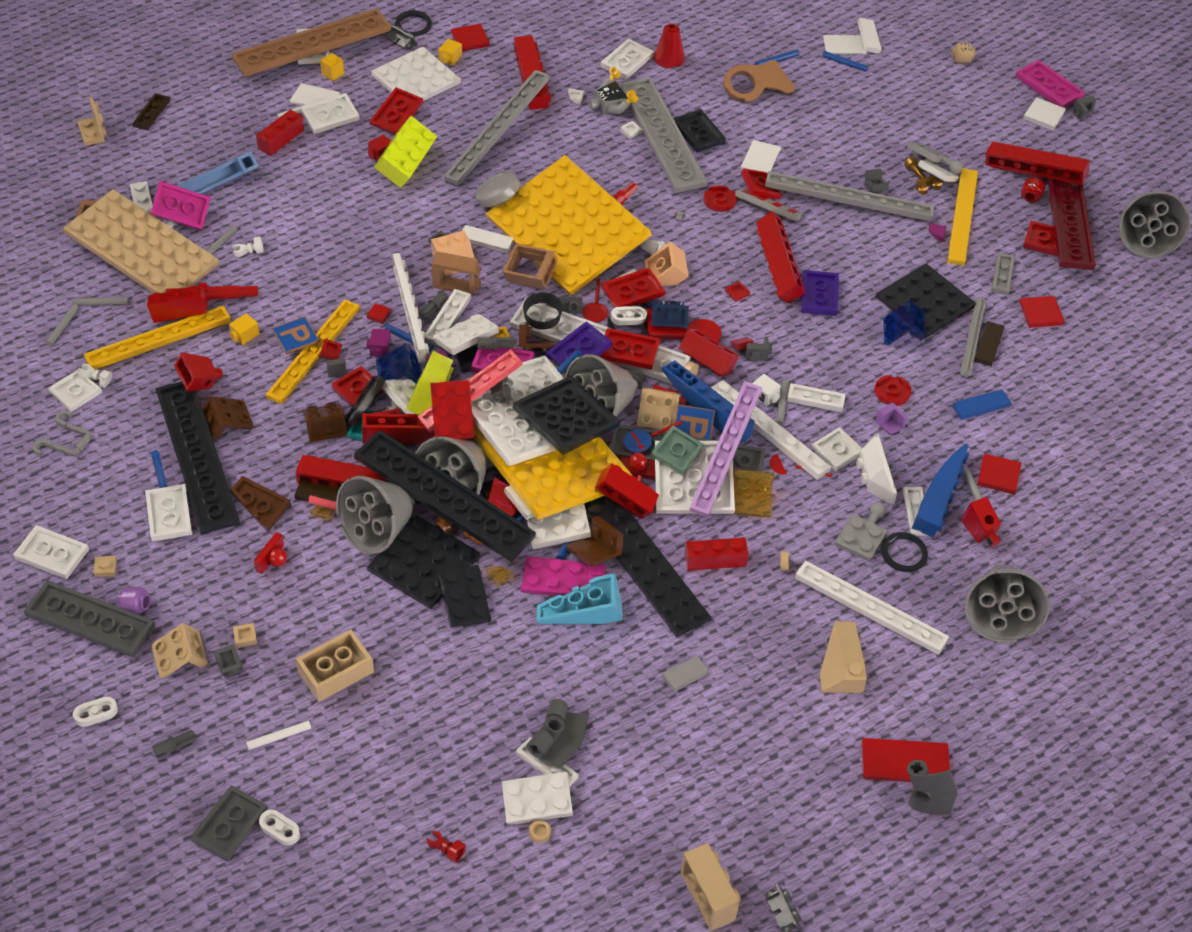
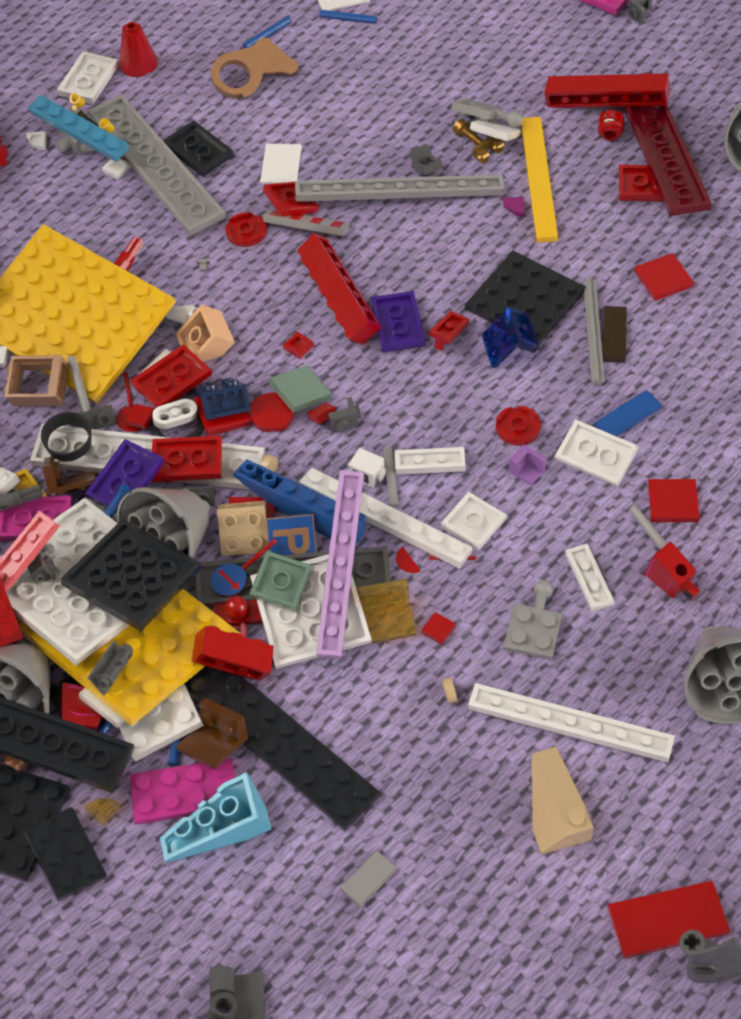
camera: 10 degrees left, 5 degrees up
(533, 472) = (110, 666): none -> dark grey hinge
(561, 276) = (78, 382): none -> light grey bar
(601, 311) = (140, 416): none -> red tile
(610, 93) = (78, 128): none -> dark azure plate
(708, 352) = (285, 436): red brick -> none
(716, 553) = (364, 705): red brick -> none
(729, 322) = (300, 388): none -> sand green tile
(788, 516) = (438, 628): none -> red tile
(858, 307) = (448, 329): none -> red plate
(876, 471) = (527, 538): white wedge -> none
(908, 536) = (588, 613): black piece -> none
(940, 494) = (611, 549): blue slope -> none
(948, 424) = (596, 452): none -> white tile
(1003, 273) = (605, 240): light grey tile -> none
(1044, 113) = (597, 25): white tile -> none

